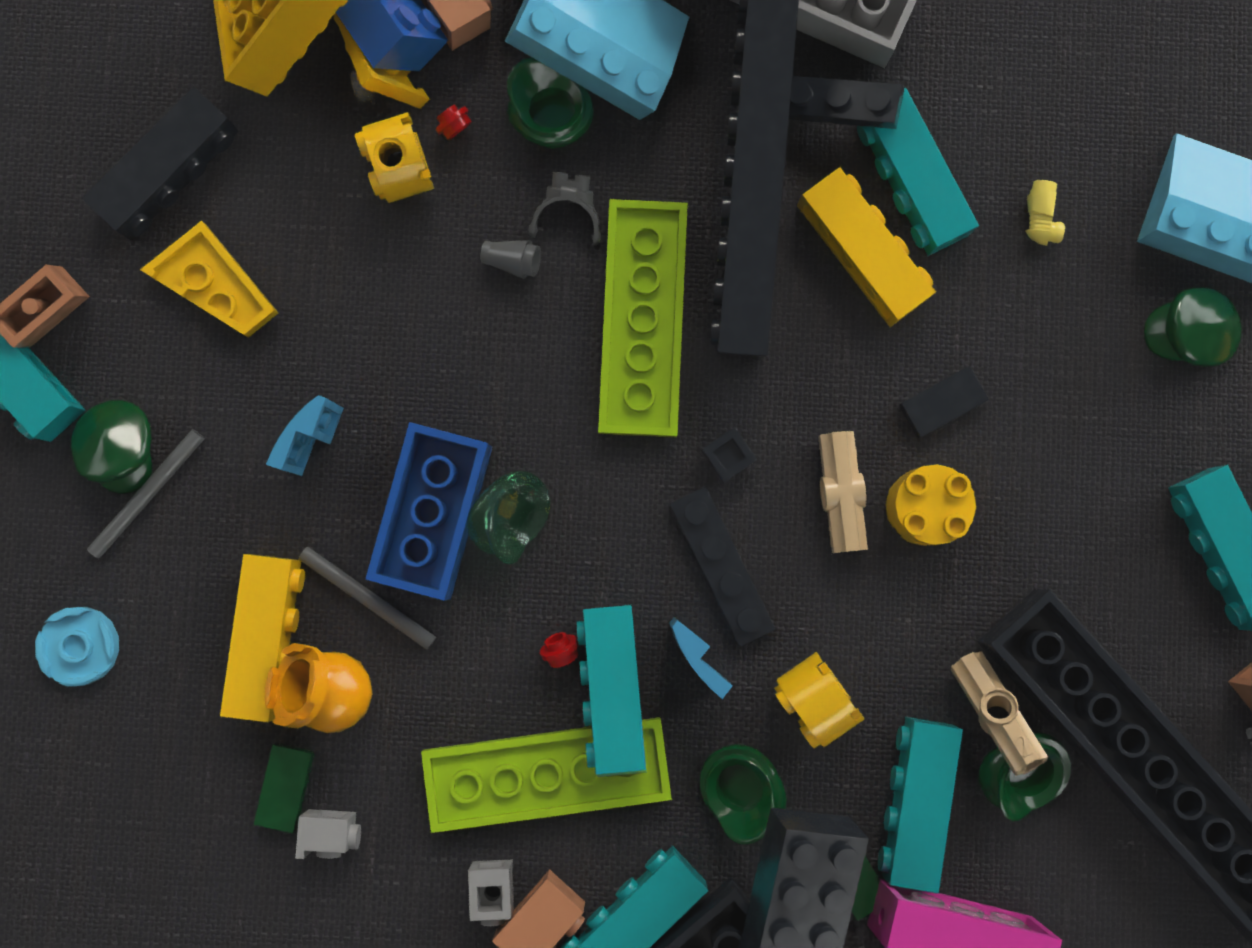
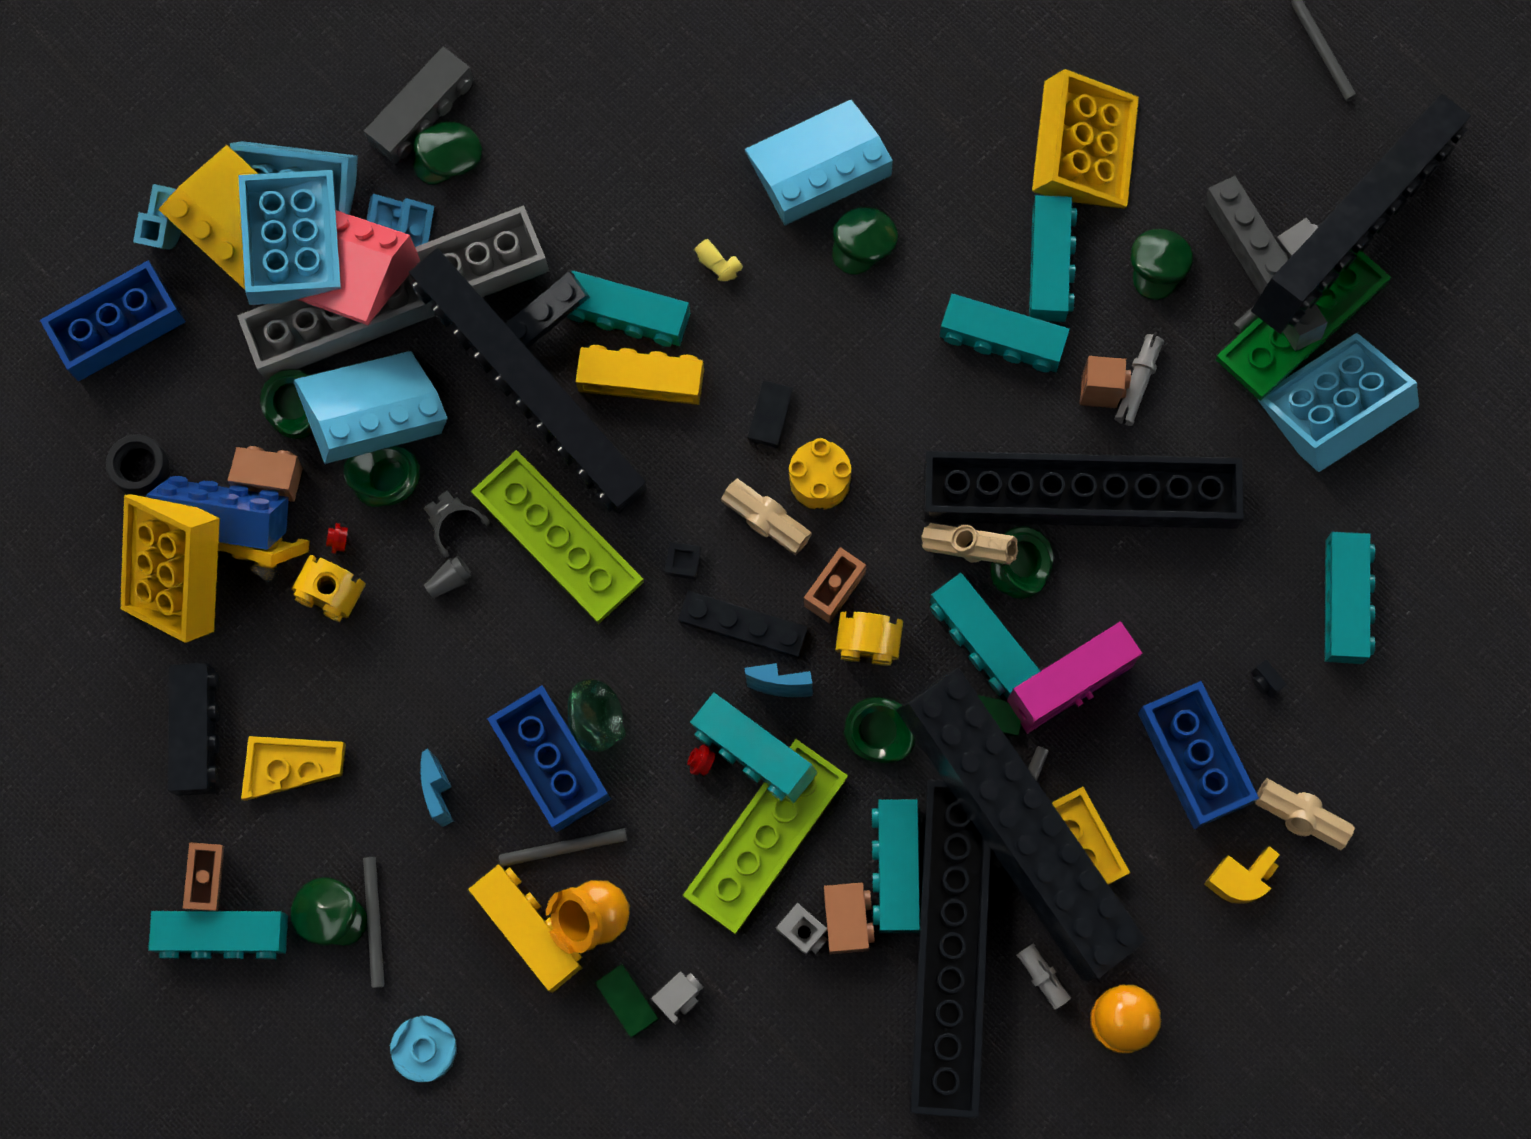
camera: 40 degrees left, 10 degrees down
(838, 621) = (834, 585): none -> nougat brick

